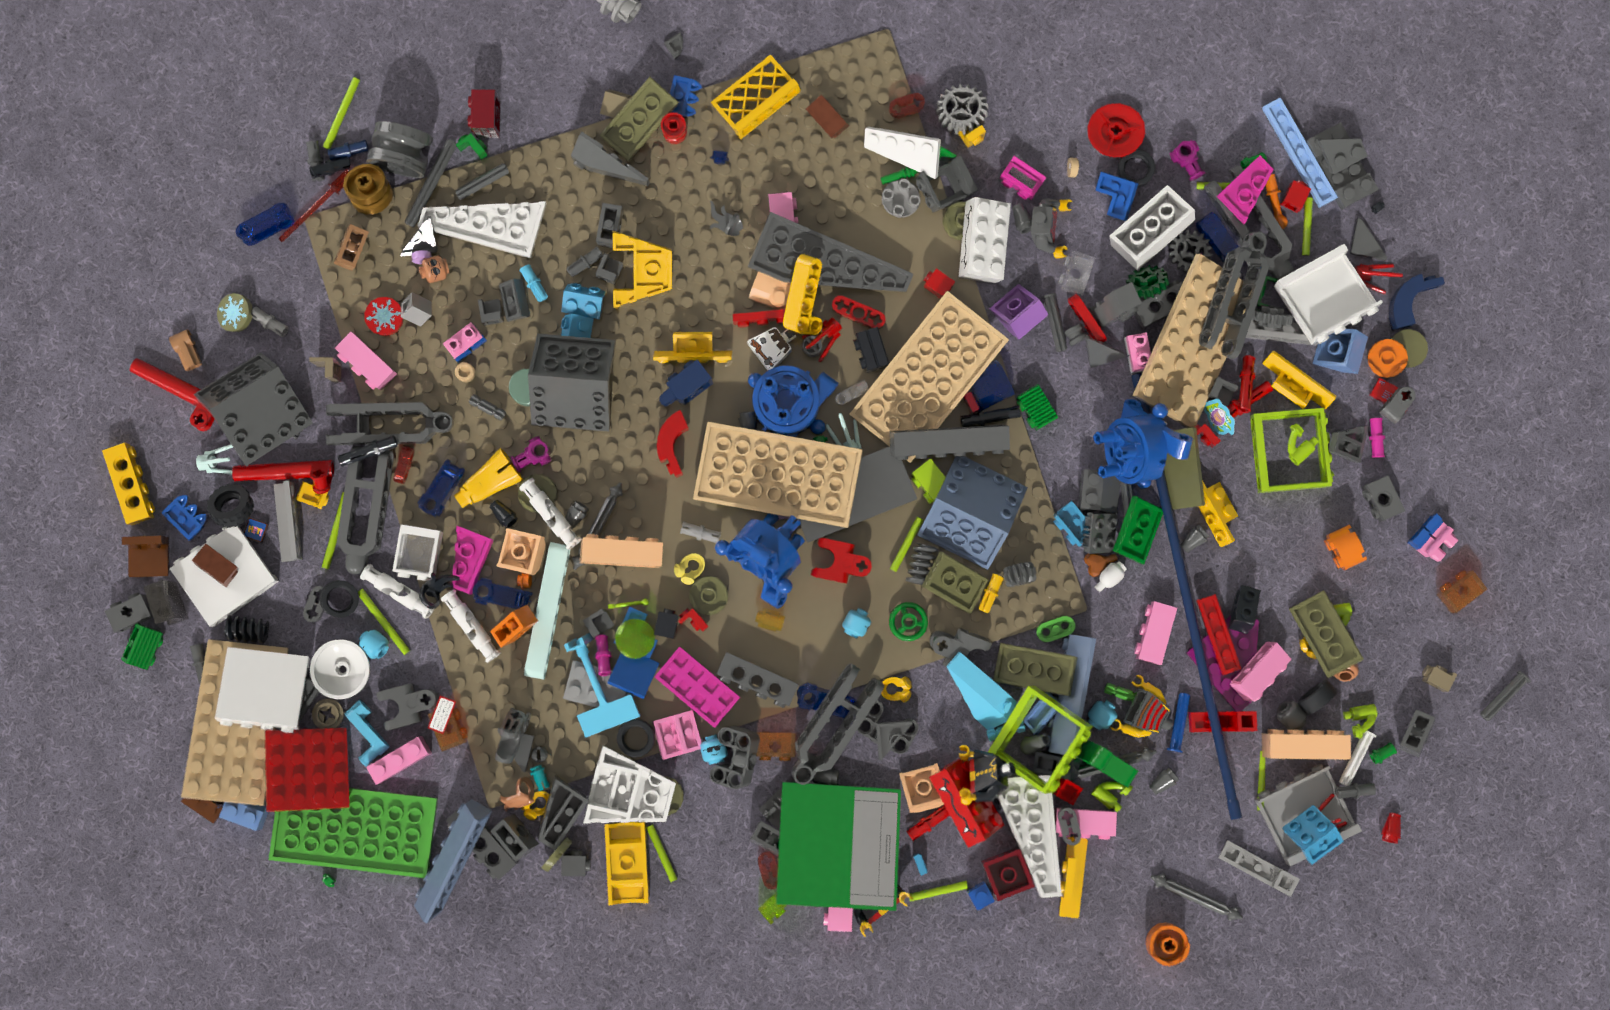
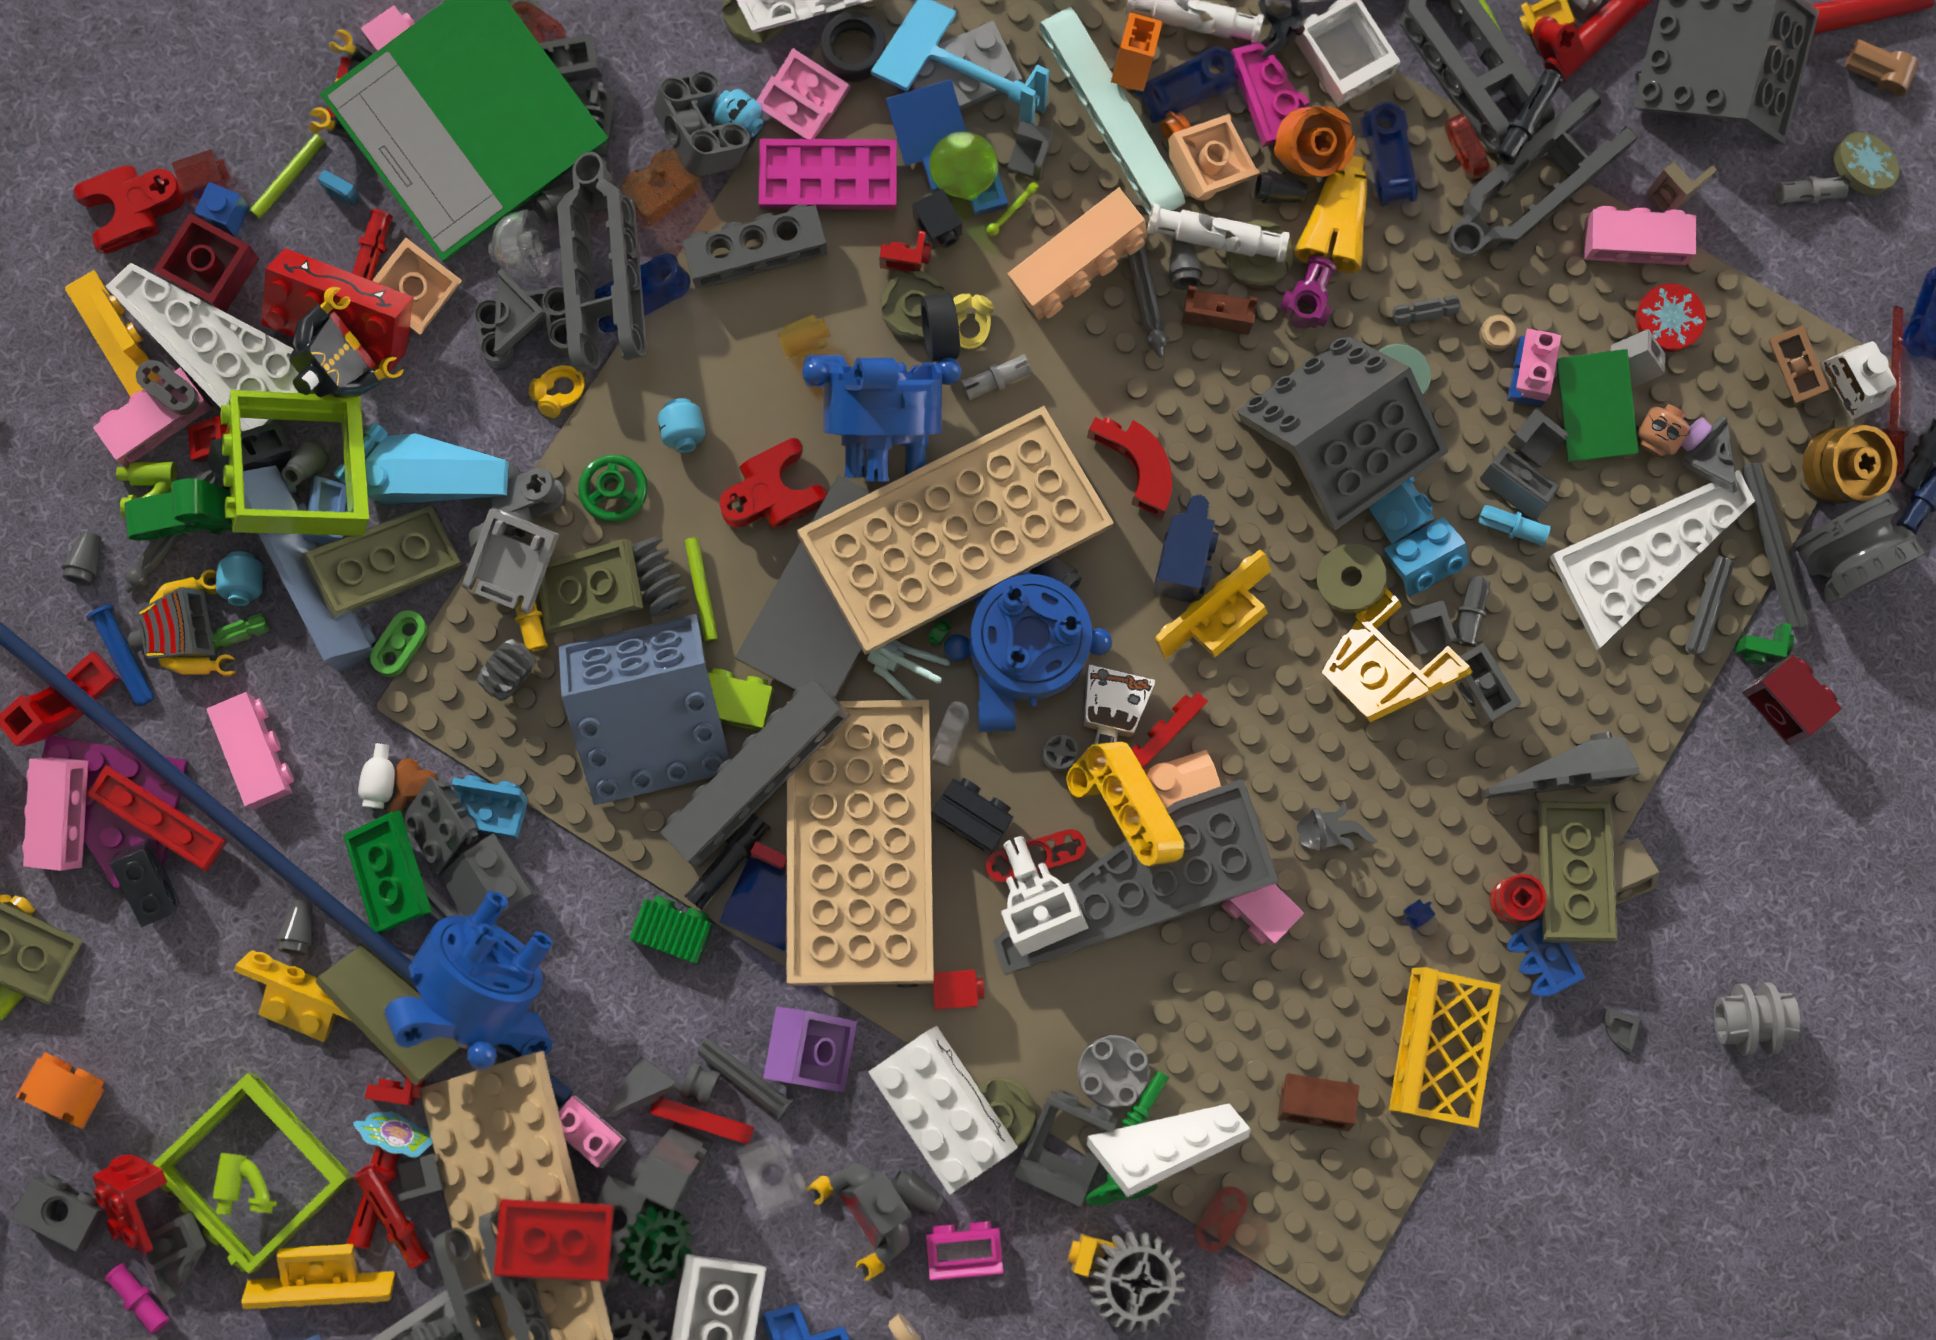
camera: 135 degrees right, 5 degrees down
(329, 221) = (1860, 378): none -> white torso
(453, 303) = (1597, 405): none -> green tile
(471, 519) = (1308, 125): none -> orange brick
(577, 482) = (1219, 311): none -> copper hinge
(603, 655) = (987, 113): dark pink pin -> none
(634, 323) = (1352, 558): none -> olive tile
(709, 570) = (940, 327): none -> black tyre
(830, 328) = (1055, 798): red plant -> none
(862, 765) = (519, 246): none -> clear cylinder
(876, 284) = (1041, 908): none -> white brick
(976, 920) = (199, 169): none -> clear red brick
(982, 618) = (509, 565): none -> light grey container
(1016, 934) = (136, 204): none -> red piece
(1189, 311) = (553, 1240): none -> red tile
(1349, 484) = (116, 1192): none -> red bracket

